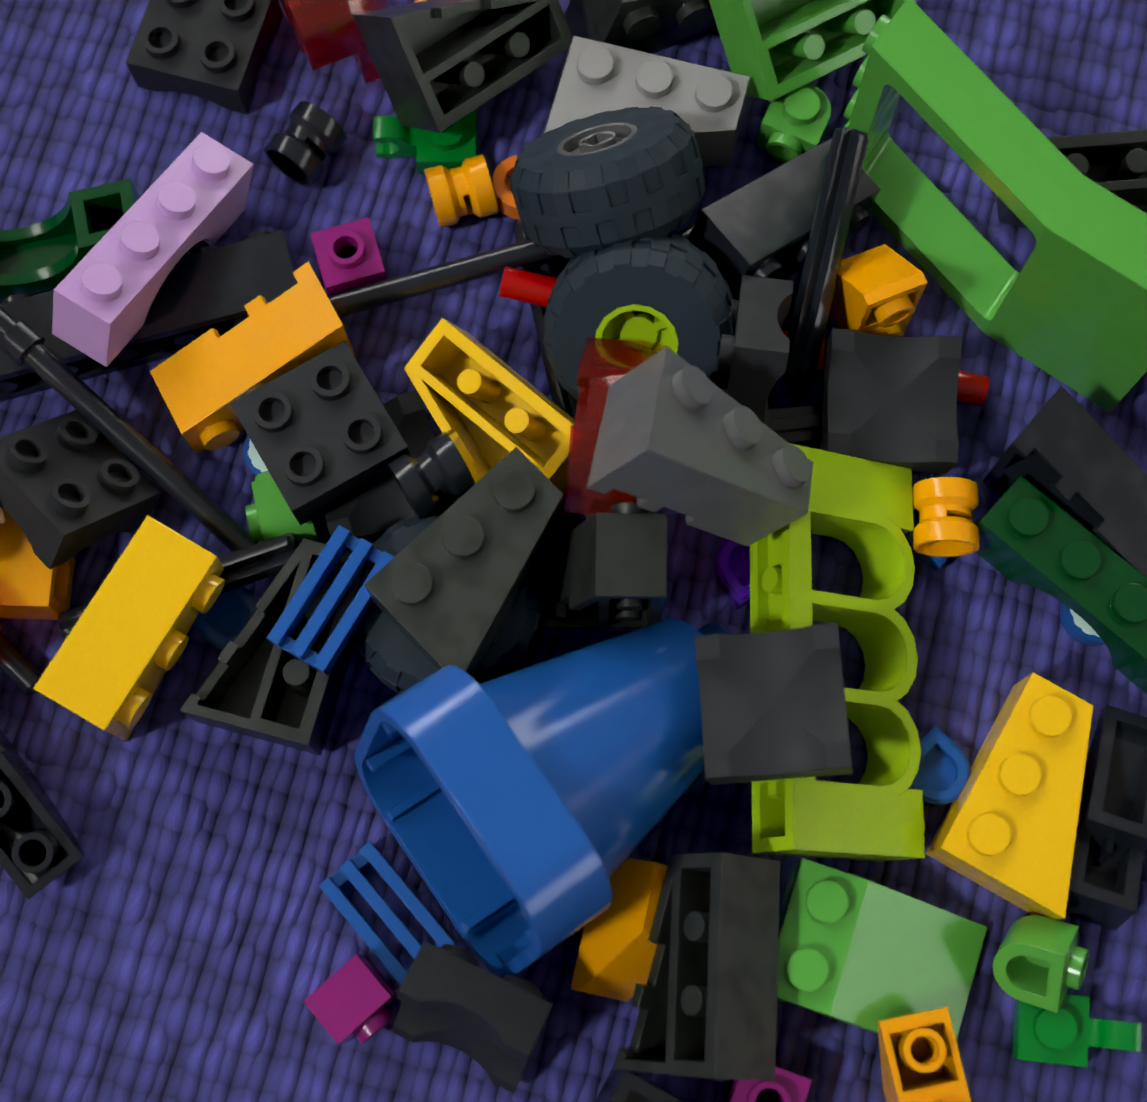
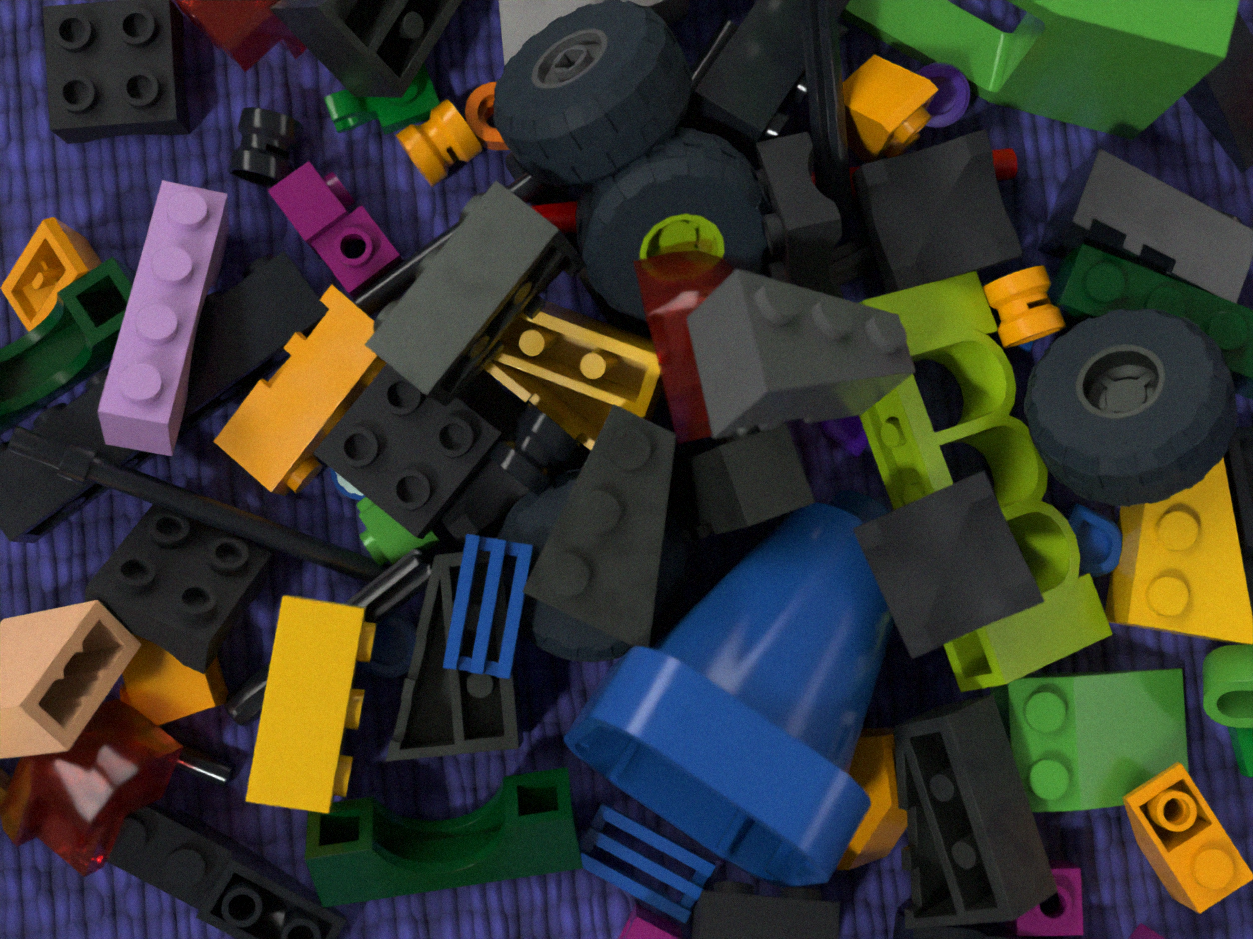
camera: 25 degrees left, 10 degrees up
(76, 166) = (46, 266): none -> light orange slope
(131, 800) = (375, 854): none -> dark green arch
(325, 198) = (312, 201): none -> magenta plate
(430, 307) = (472, 293): none -> pearl dark grey wedge
(940, 307) = (952, 95): none -> dark purple tile
(1012, 636) = (1131, 406): none -> black wheel

